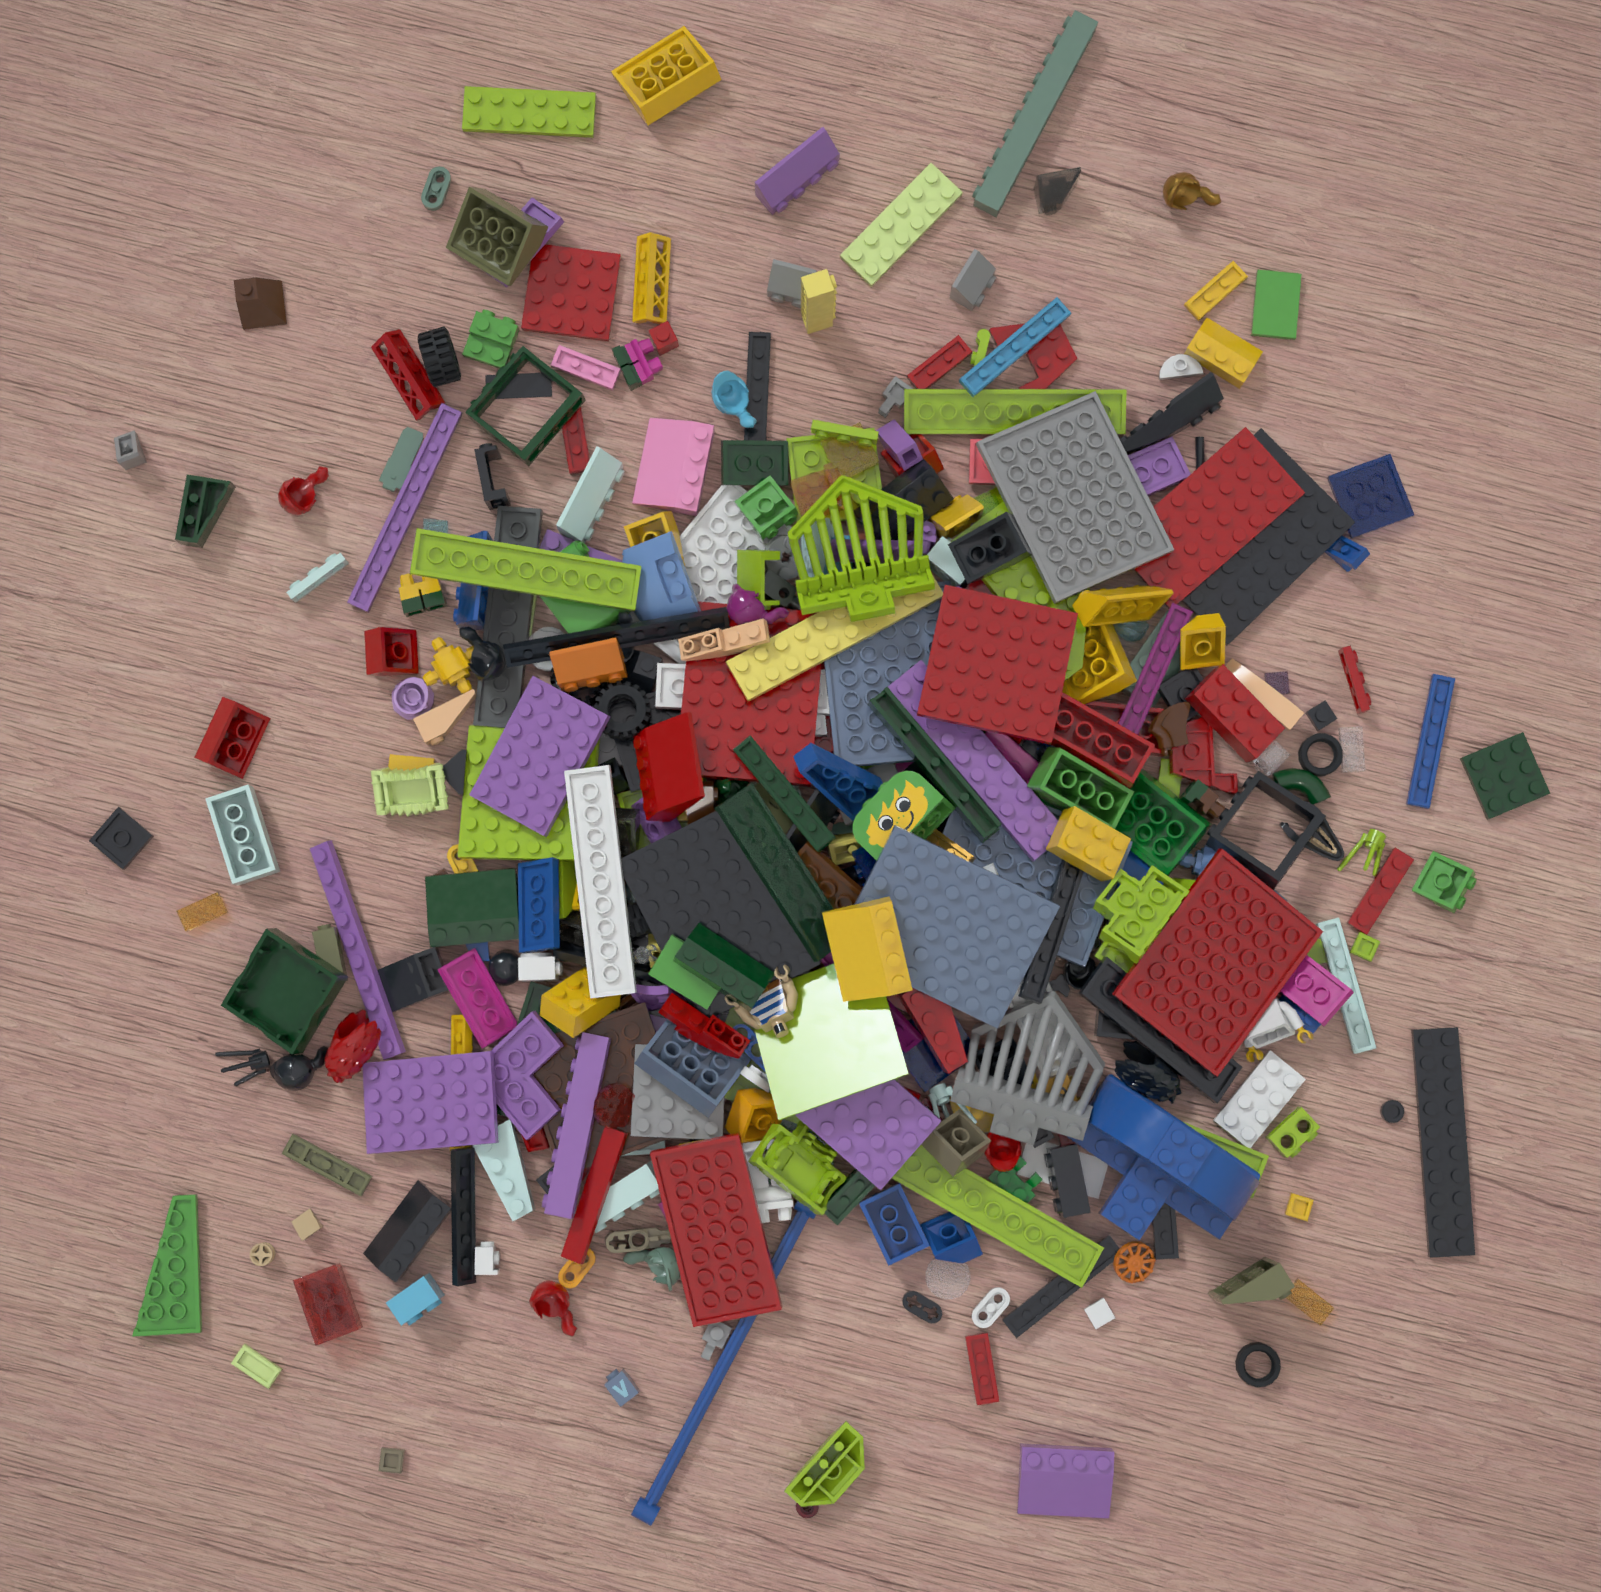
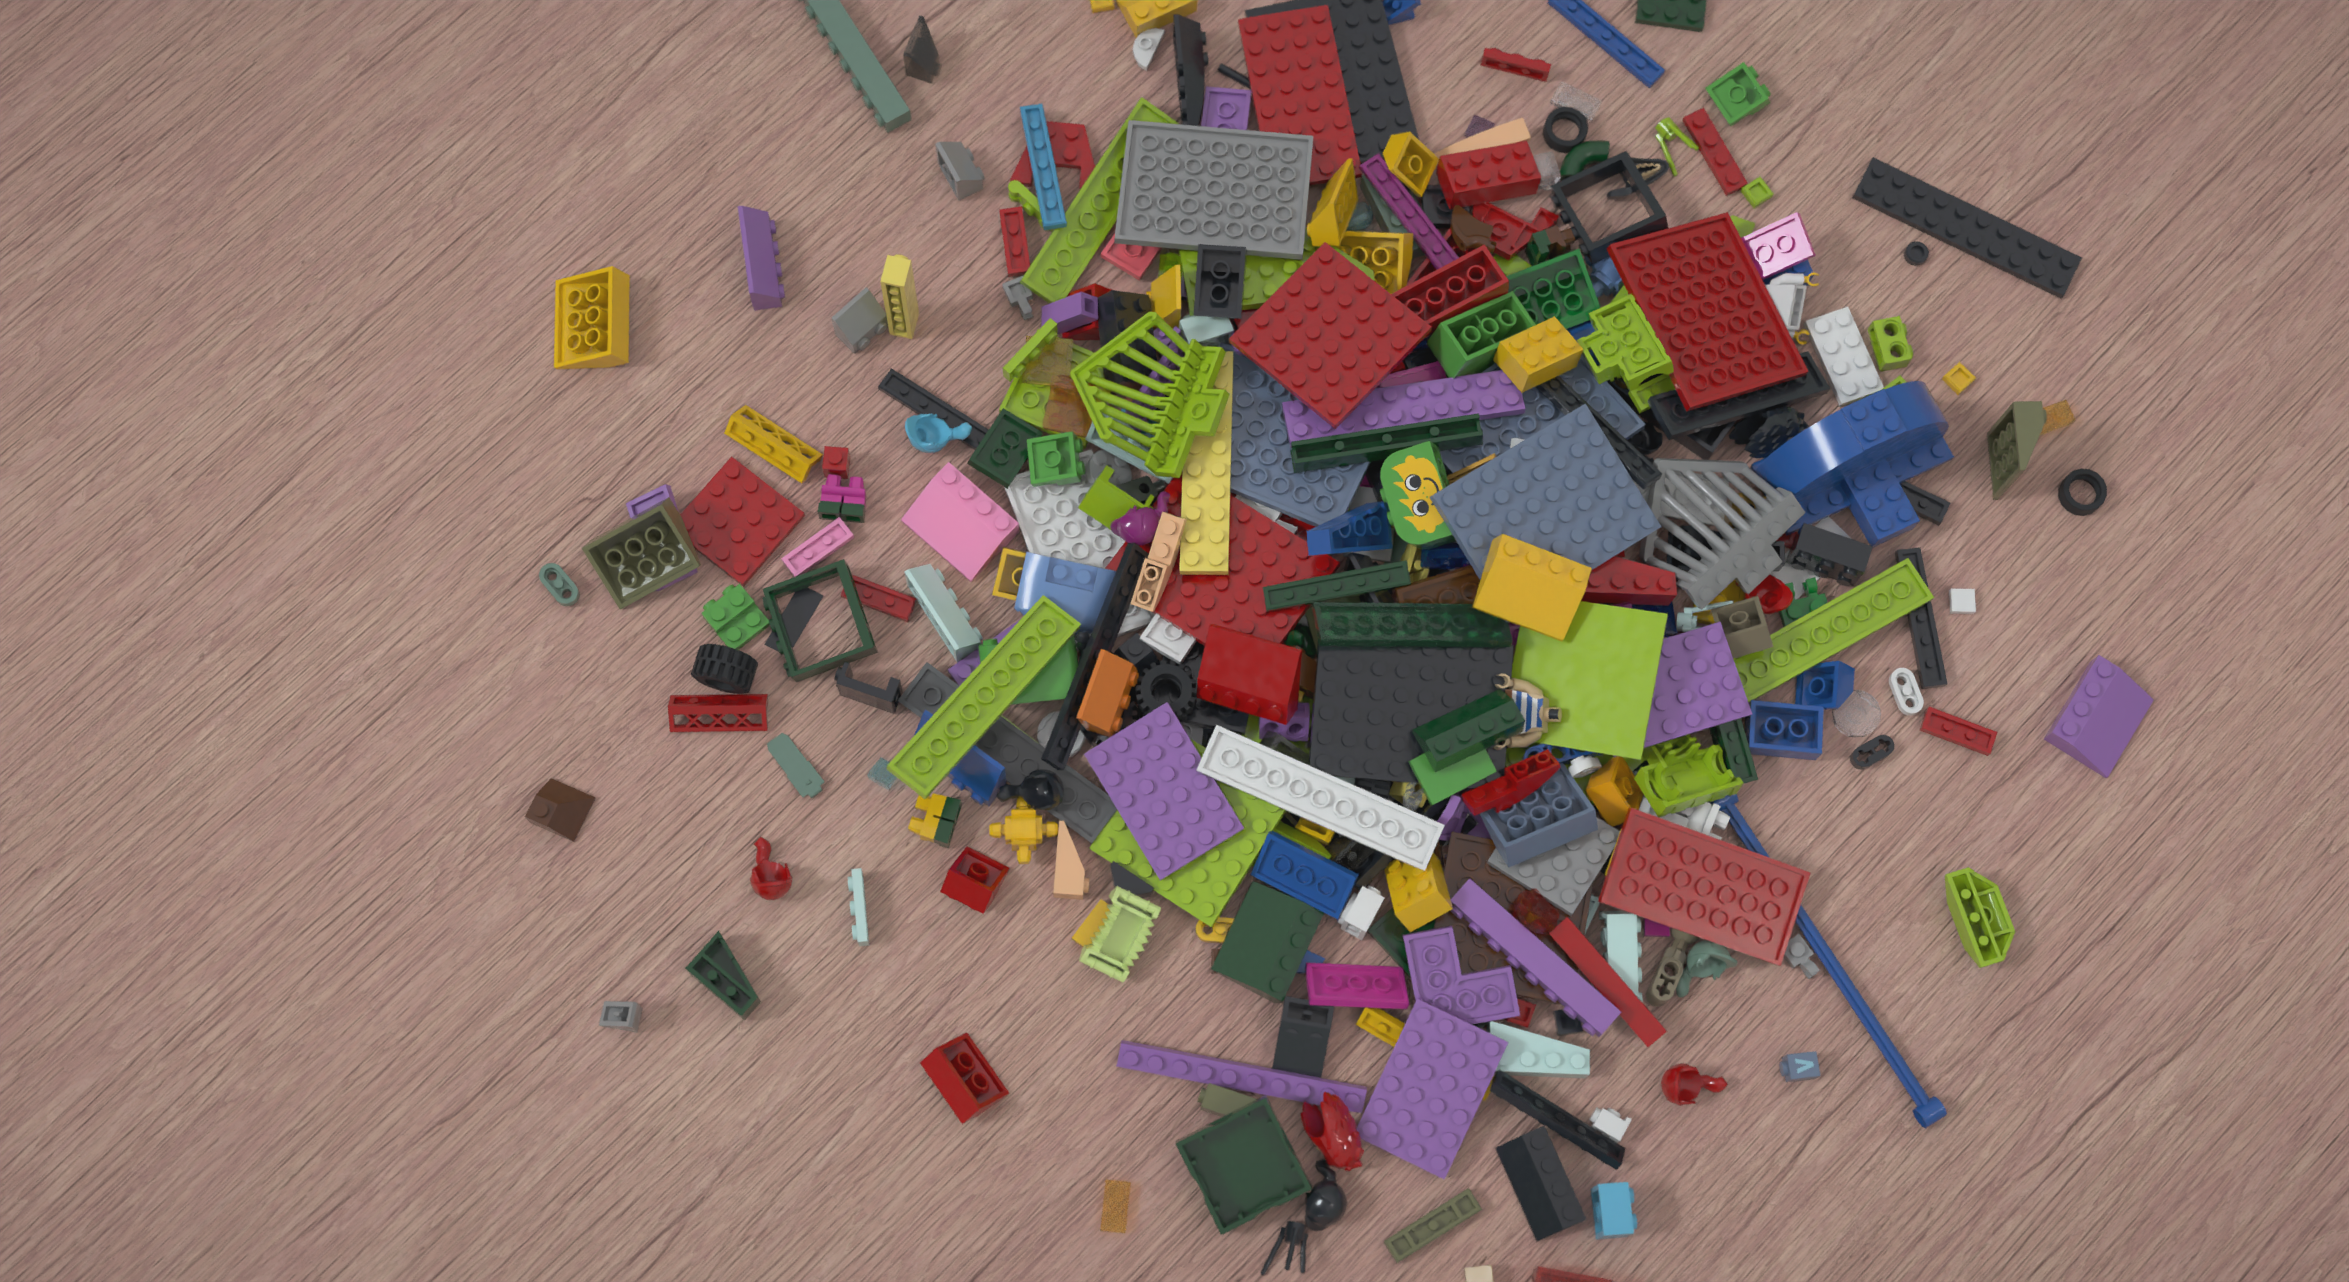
camera: 65 degrees left, 10 degrees down
(121, 838) = (997, 1243): black plate -> none
(242, 835) = (1066, 1120): light aqua brick -> none
(404, 508) = (845, 788): medium lavender plate -> none
(412, 698) = (1030, 886): lavender hat -> none
(504, 967) = (1339, 947): black hair -> none
(529, 112) = (542, 461): lime plate -> none
(578, 1270) = (1668, 1044): light orange plate -> none
(807, 1513) = (2010, 964): dark red plate -> none
(901, 224) = (864, 200): yellowish green plate -> none
(1134, 1262) = (1932, 543): orange wheel -> none
(1321, 715) = (1530, 110): black plate -> none
(1341, 967) = (1754, 218): light aqua tile -> none

